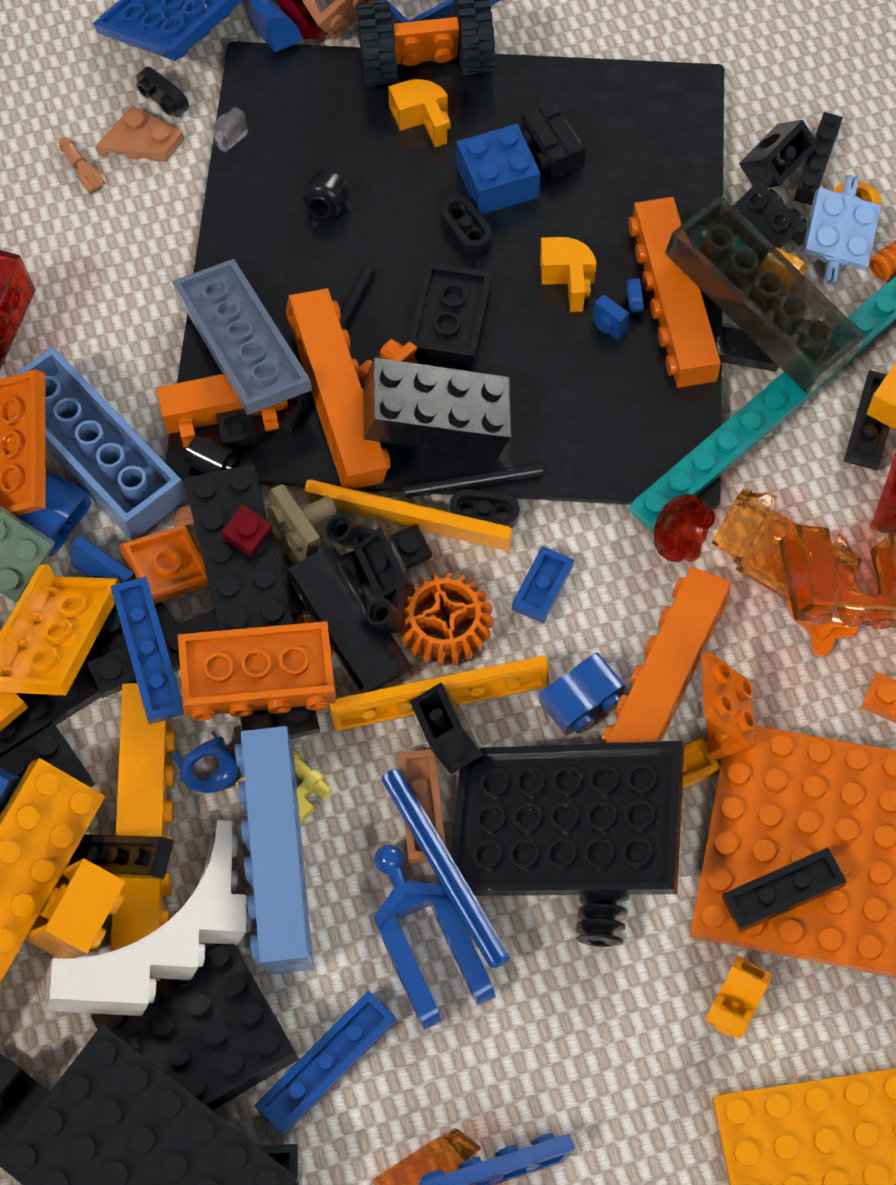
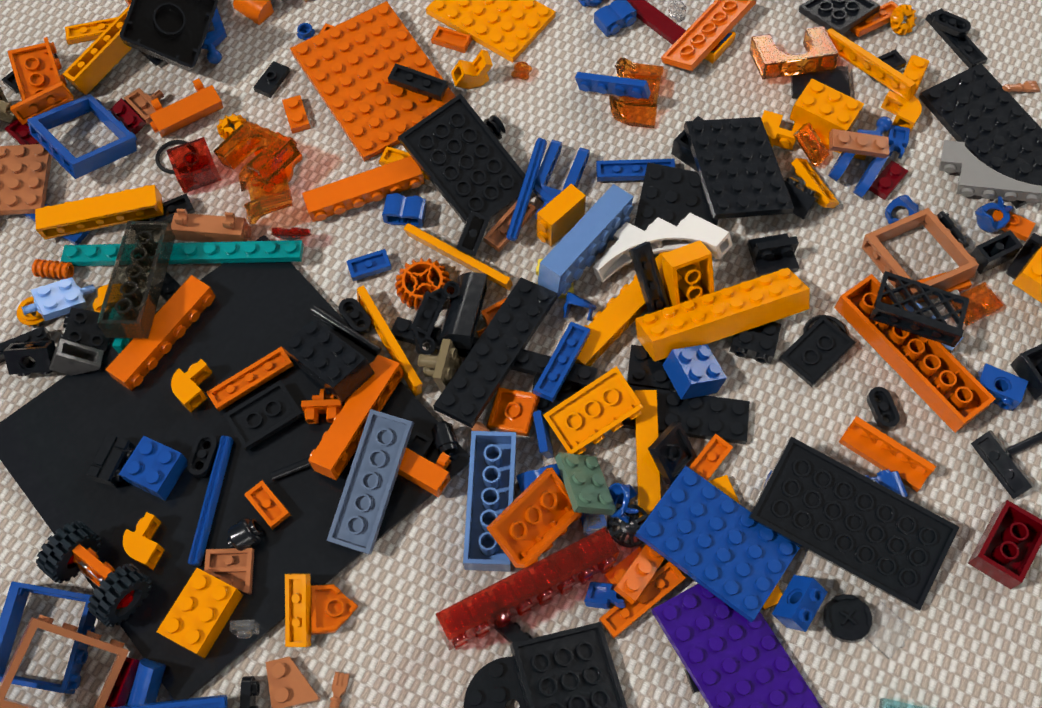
camera: 135 degrees left, 0 degrees up
(167, 217) = (329, 609): none -> orange plate
(195, 185) = (297, 610): none -> light orange plate
(247, 531) = (469, 370): dark red plate -> none
(256, 670) = (527, 305): orange bracket -> none
(287, 103) = (200, 613): none -> light orange brick
(306, 159) = (231, 567): none -> nougat wing
(338, 239) = (267, 504): none -> orange plate
(353, 865) = (560, 215): none -> light orange brick
(407, 200) = (210, 501): none -> blue axle
(514, 328) = (249, 378): none -> orange plate
(610, 317) = (203, 345): blue plate -> none
(634, 295) = (179, 346): blue tile -> none
(679, 1075) = (521, 71): none -> clear orange plate
(726, 707) = (363, 153): orange bracket -> none
(730, 182) = (75, 358): none -> flat silver slope
(792, 449) = (209, 227): none -> nougat brick
(847, 1045) = (451, 39): none -> orange tile

